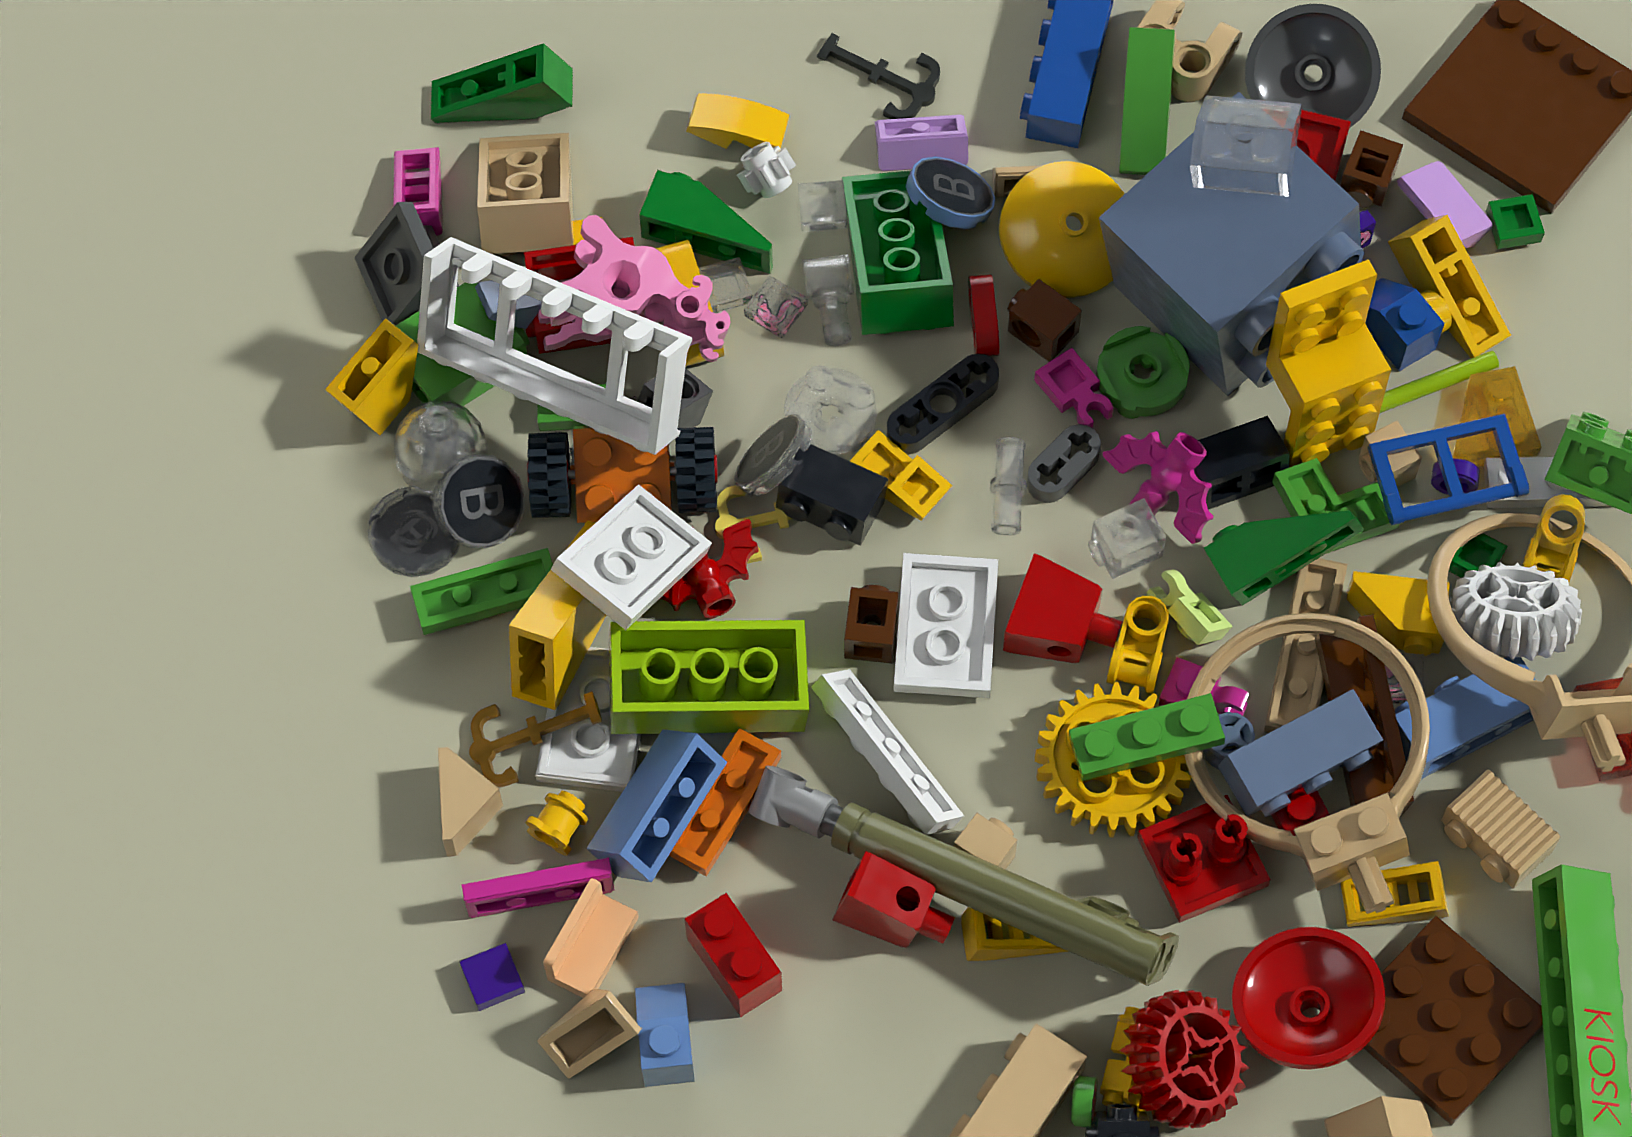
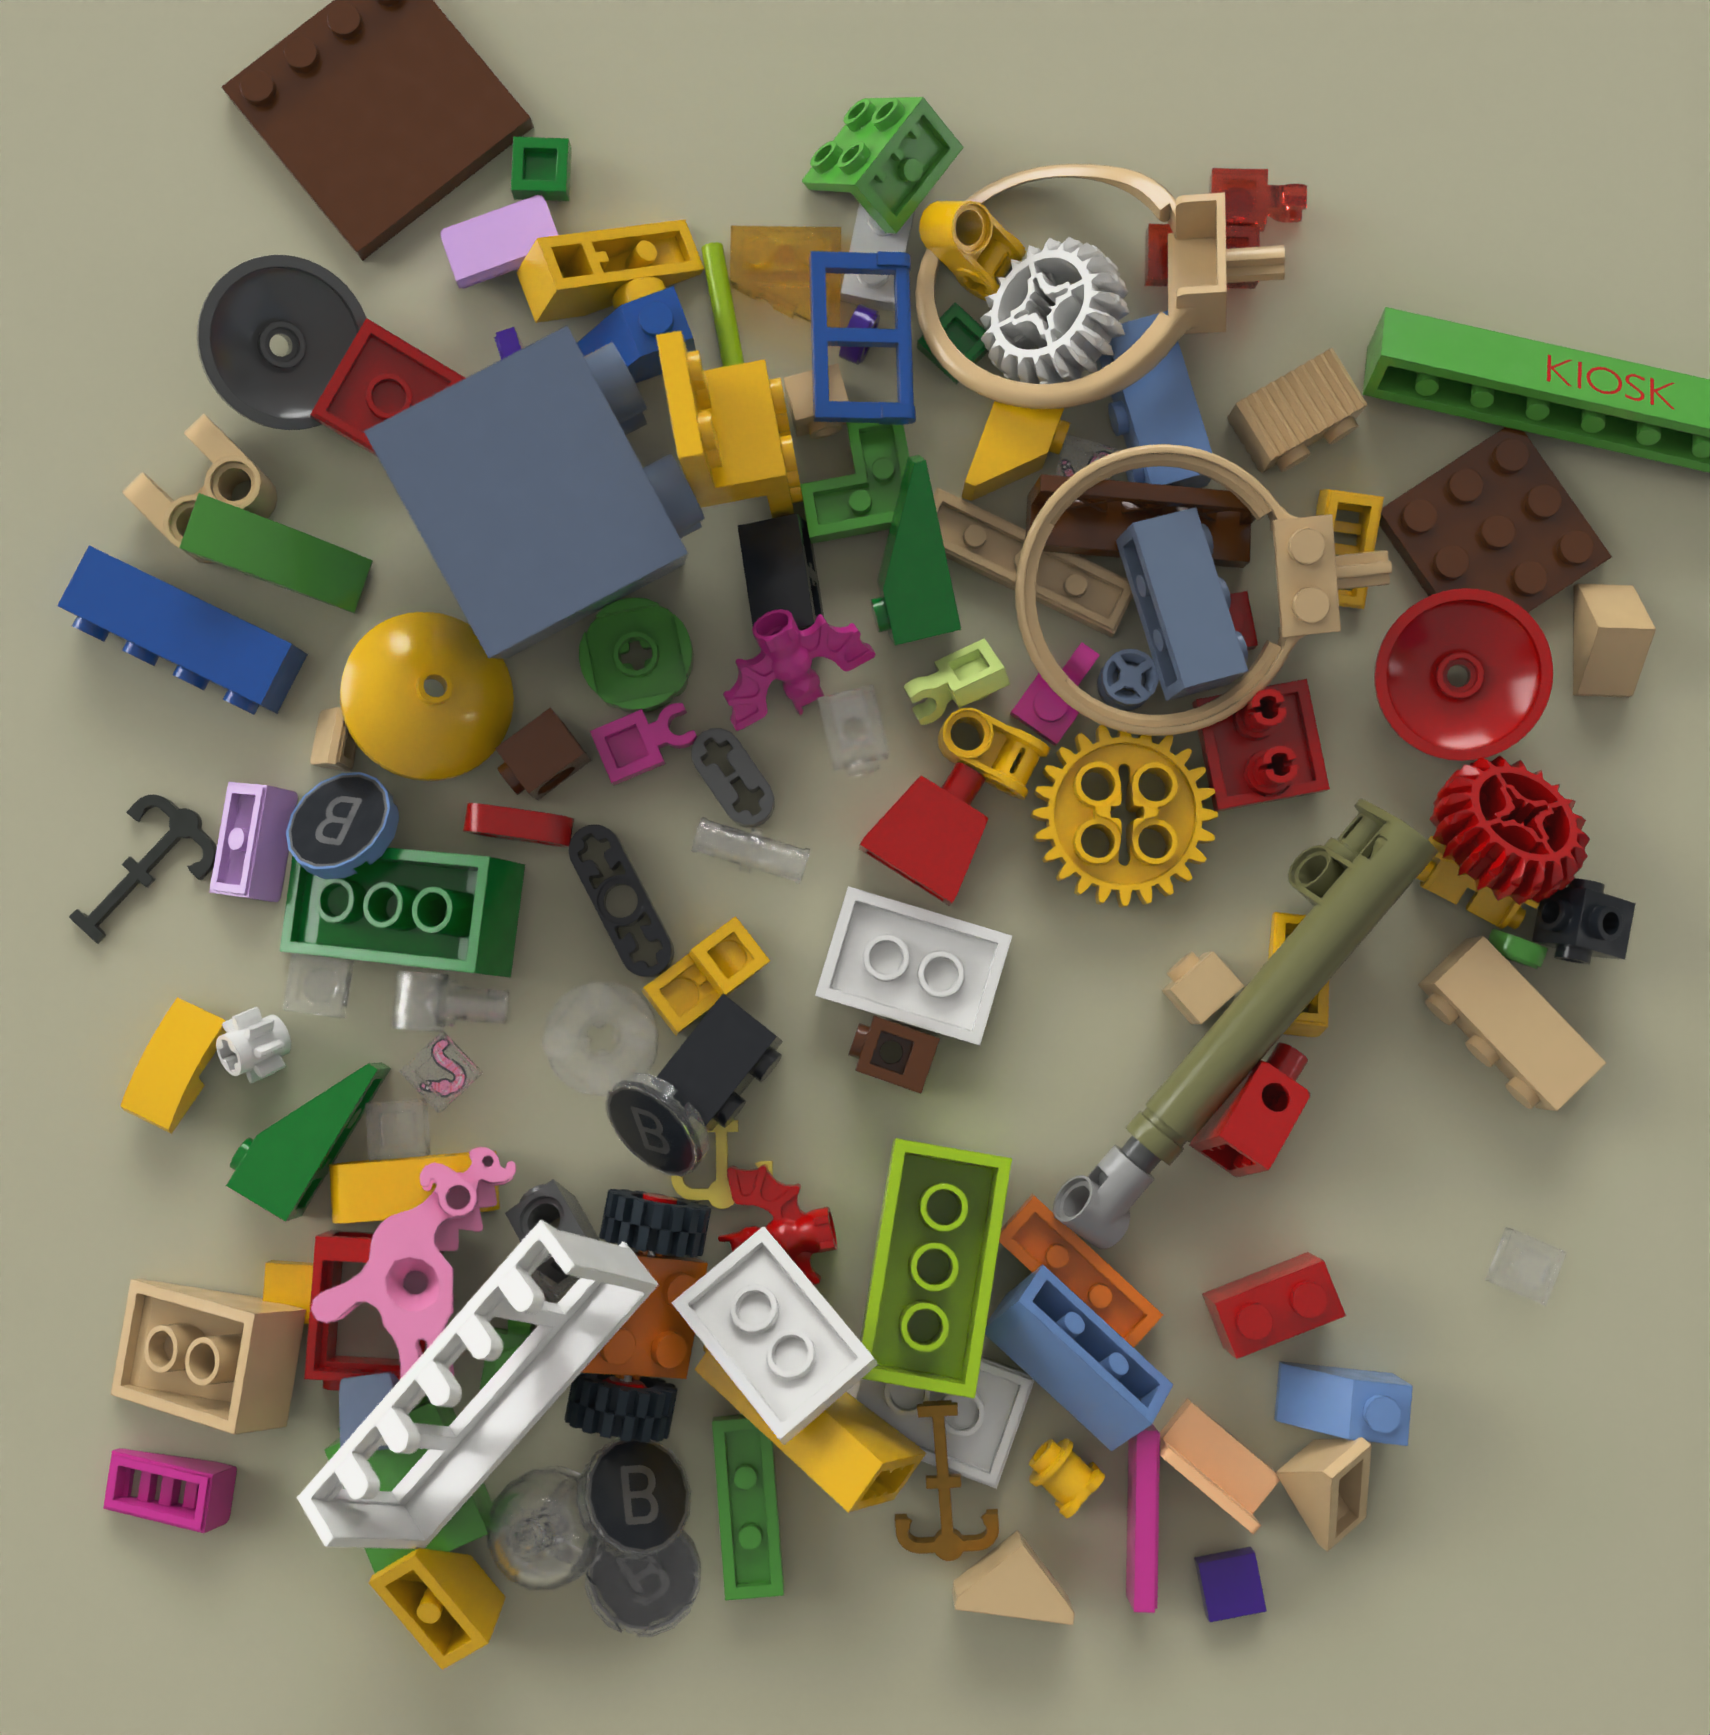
camera: 80 degrees left, 20 degrees up
(394, 262) = (268, 1533): dark grey bracket -> none
(505, 89) = (50, 1352): green slope -> none
(887, 752) = (1059, 1071): white plate -> none
(1146, 737) = (1126, 772): bright green plate -> none
(1245, 145) = (447, 439): clear slope -> none
(1371, 169) = (425, 300): reddish brown brick -> none

